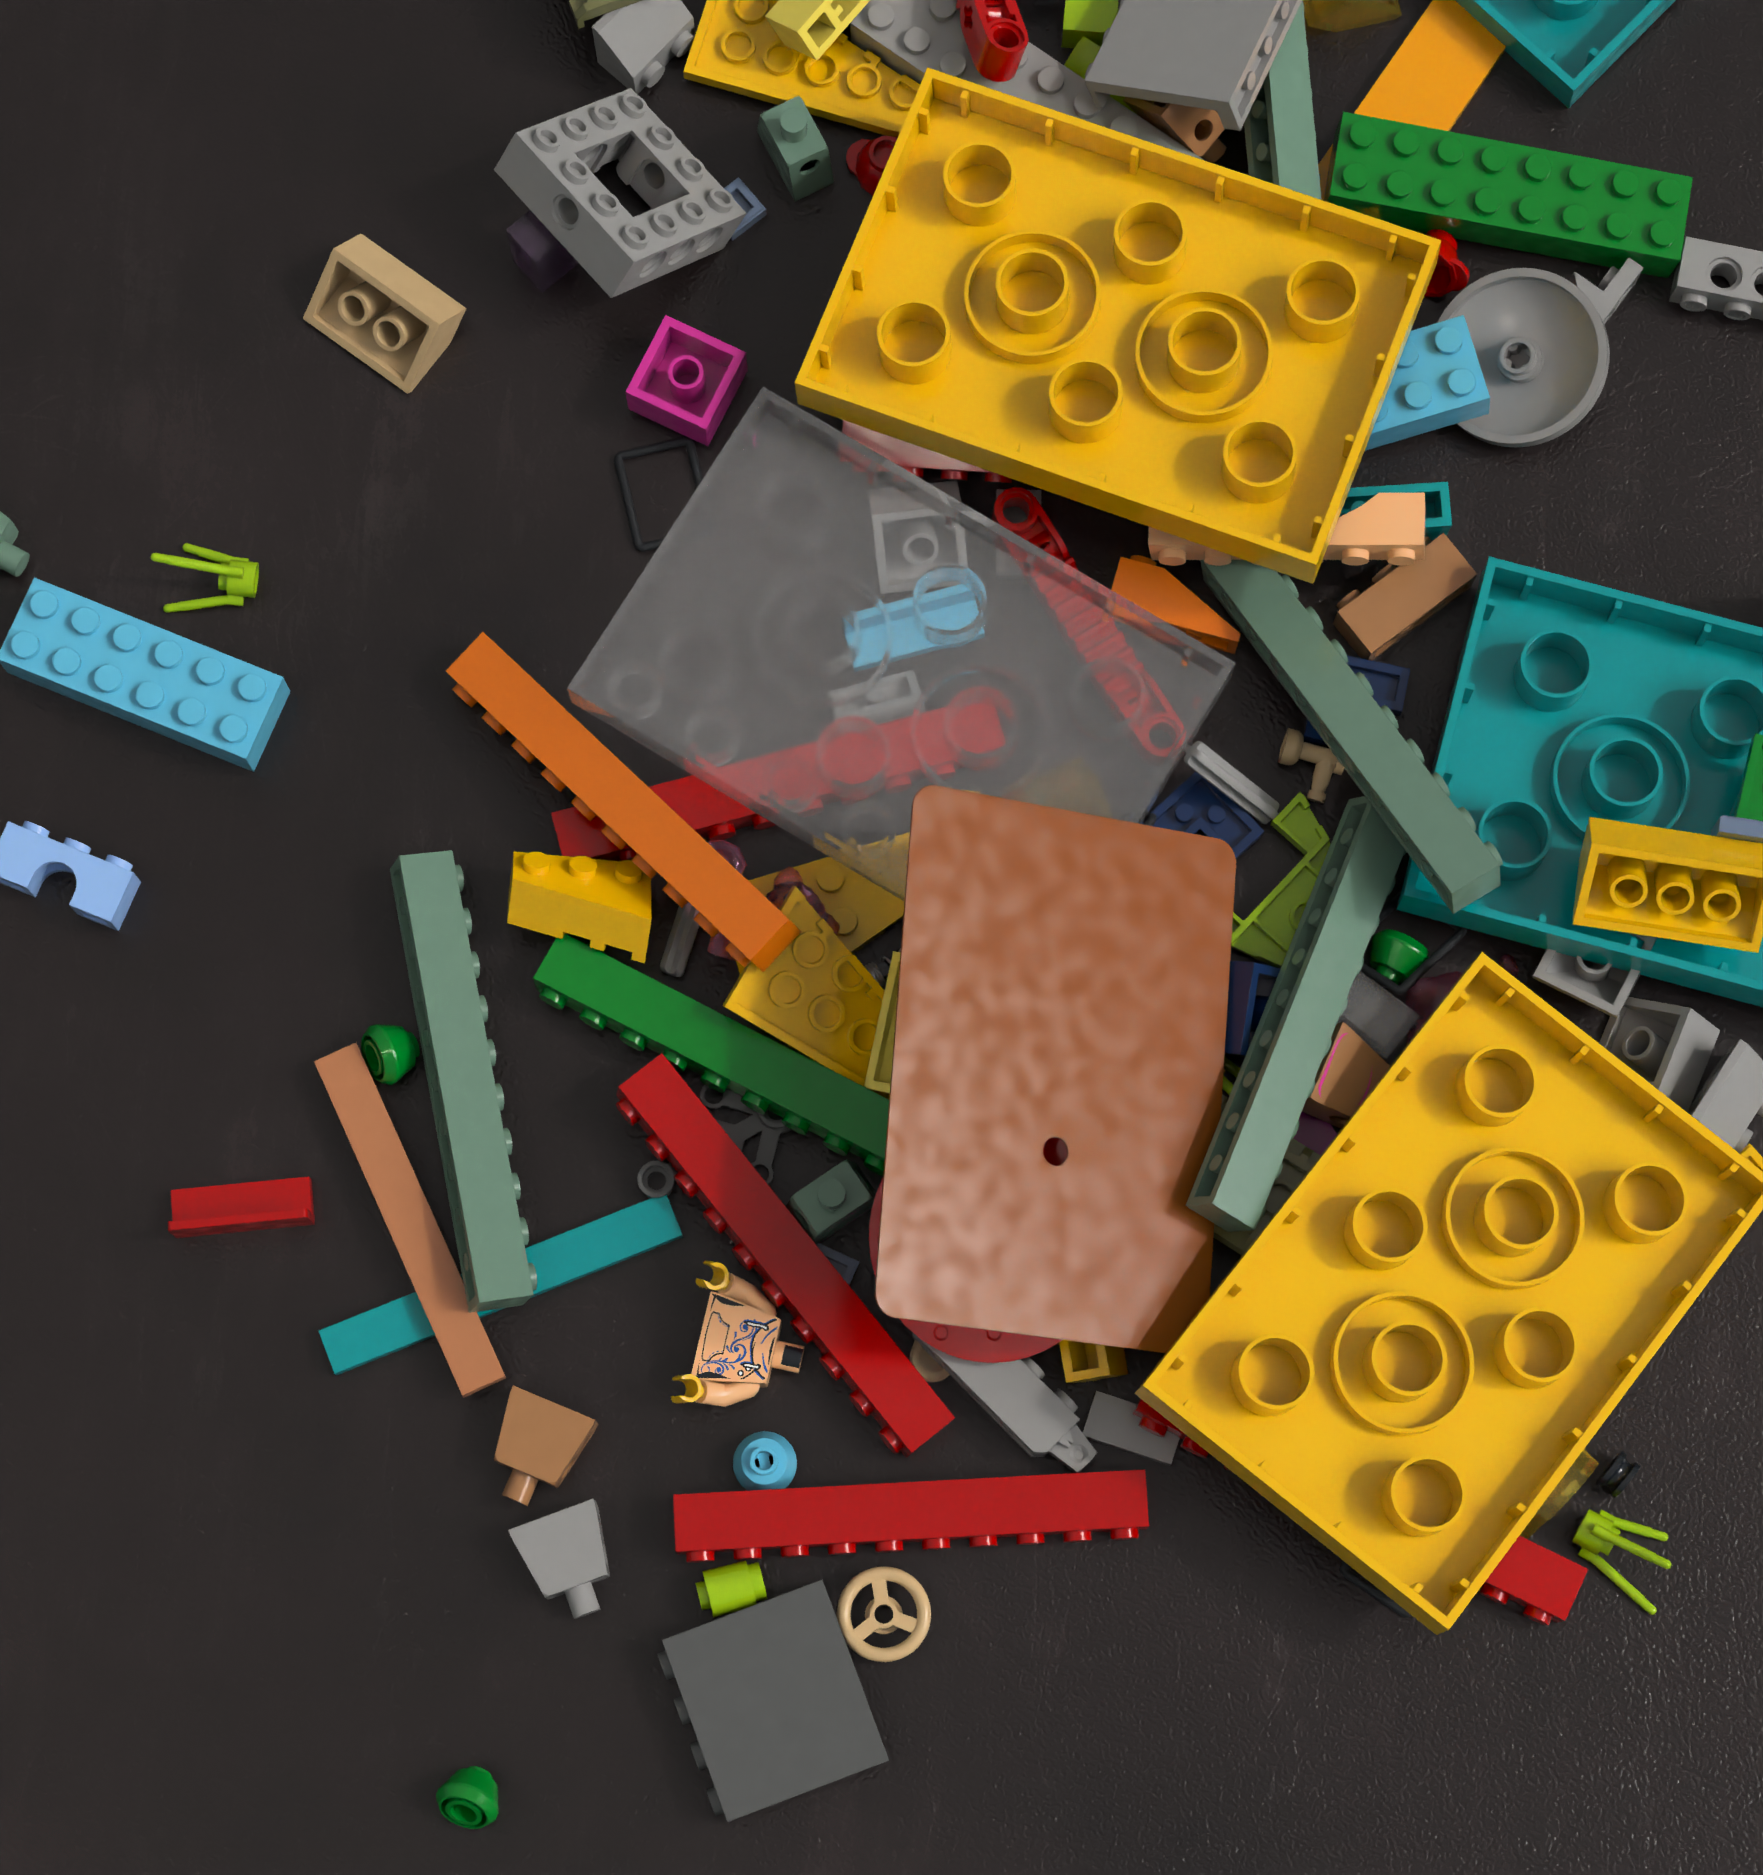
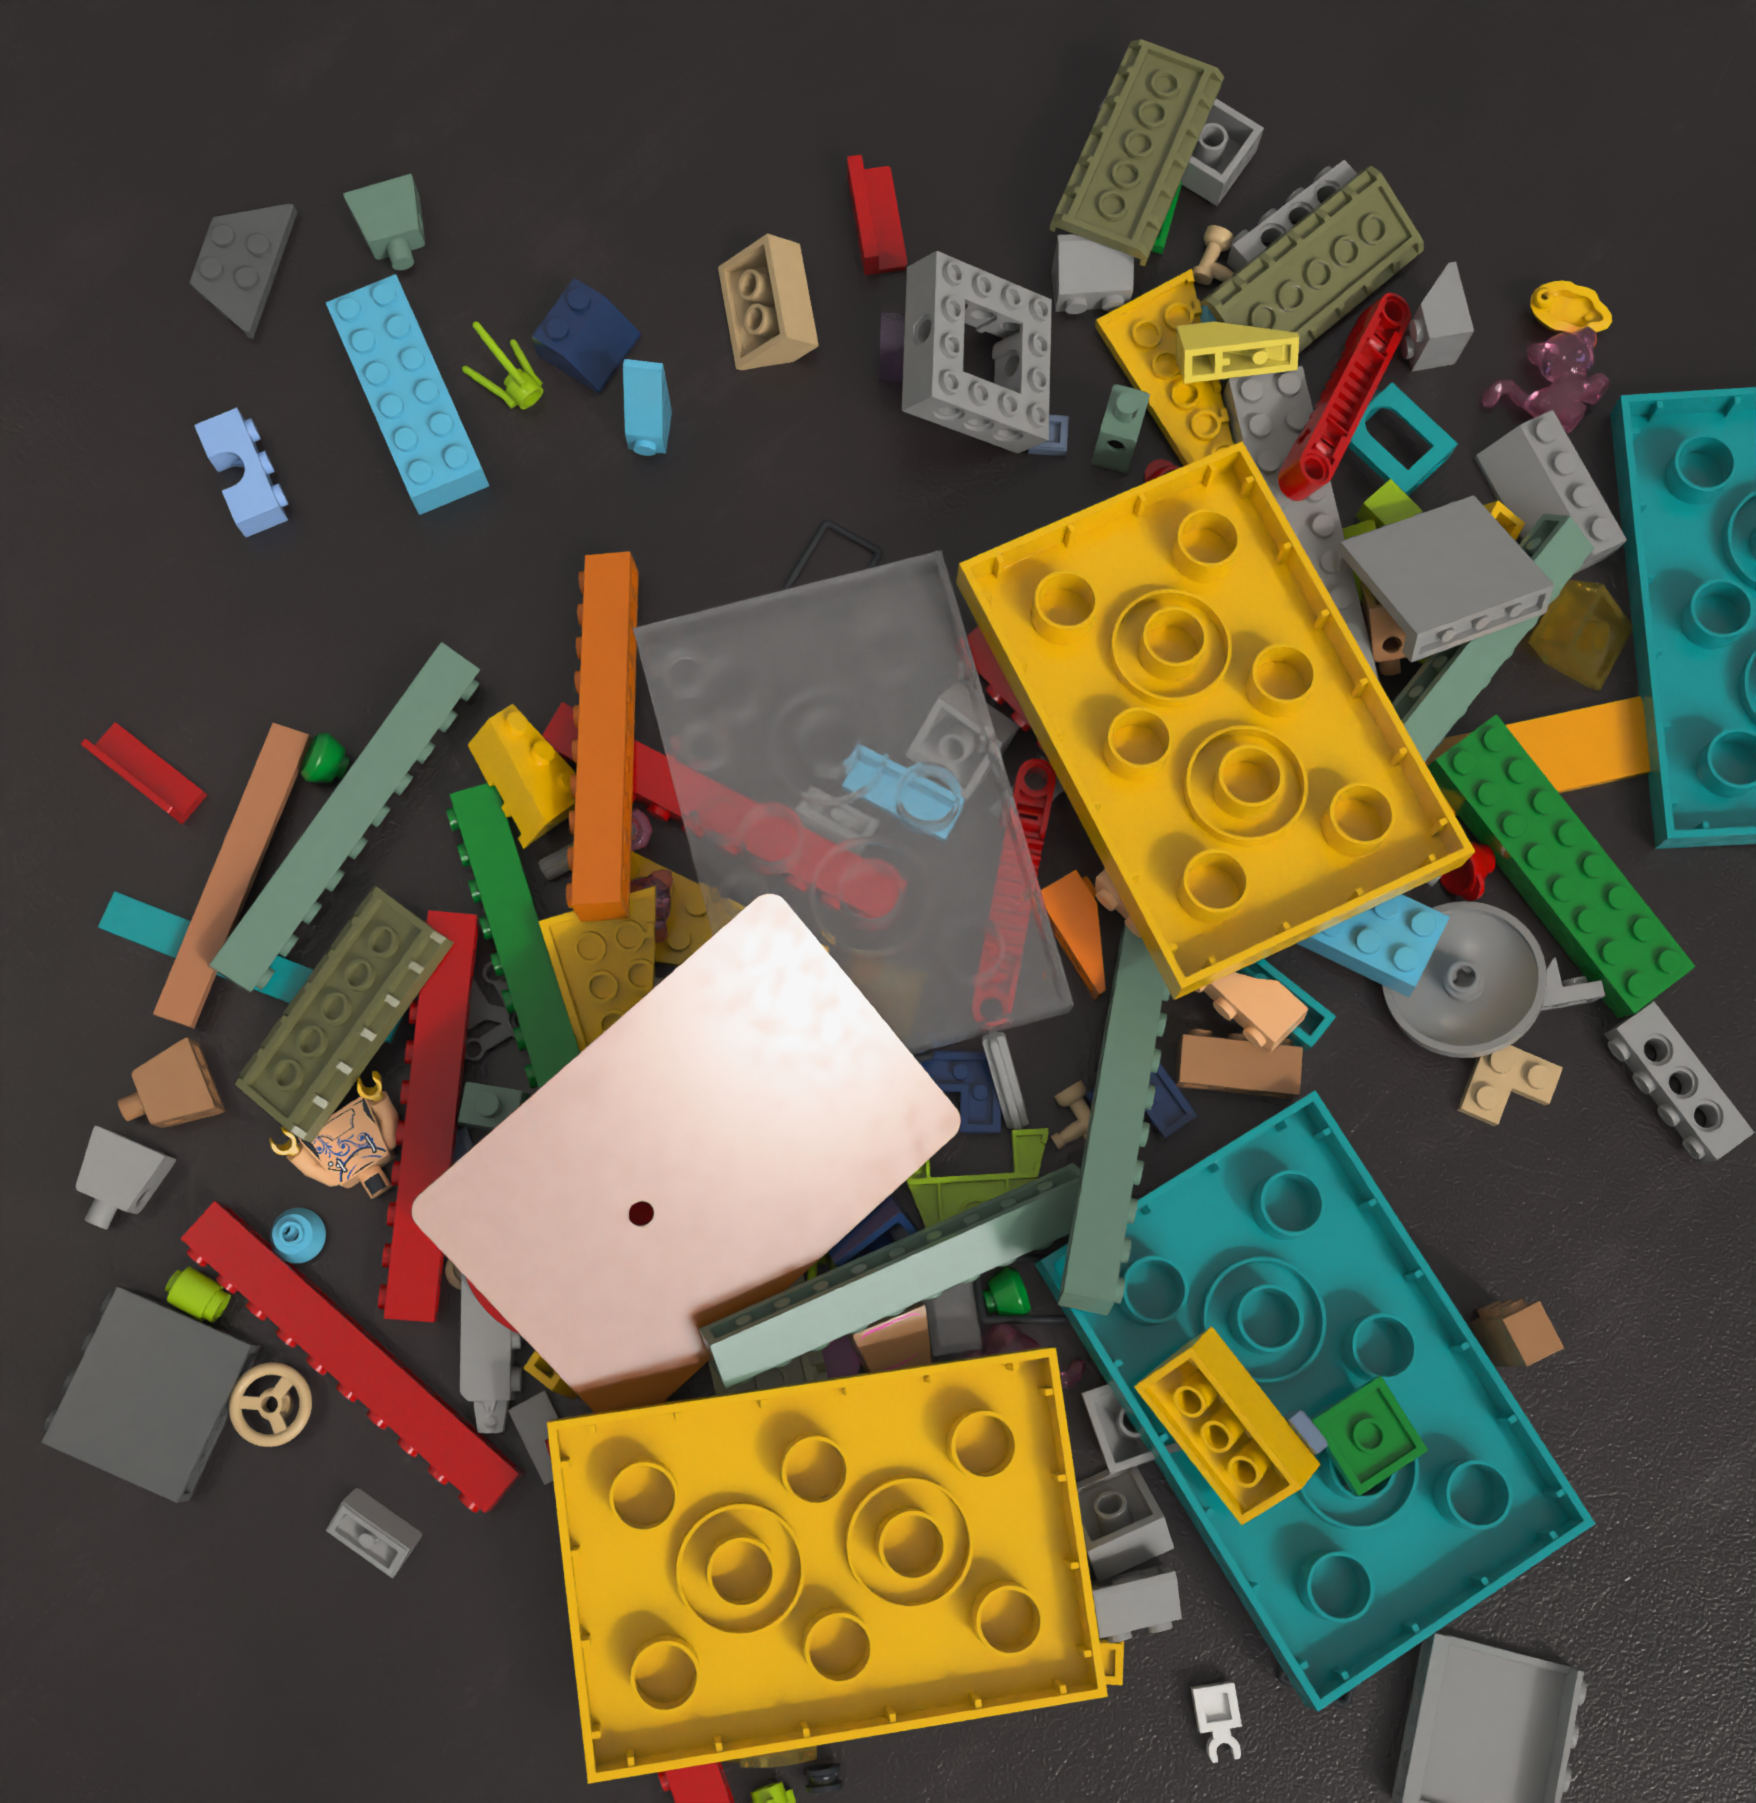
camera: 40 degrees right, 0 degrees up
(251, 483) = (585, 336): none -> dark blue slope
(376, 495) = (646, 407): none -> medium azure slope
(400, 151) = (876, 217): none -> red panel
(627, 1239) = (342, 1014): none -> olive ladder
(686, 380) = (910, 510): dark pink brick -> none
(1068, 1637) = (374, 1532): none -> light grey slope
(1619, 412) = (1503, 1073): none -> tan plate

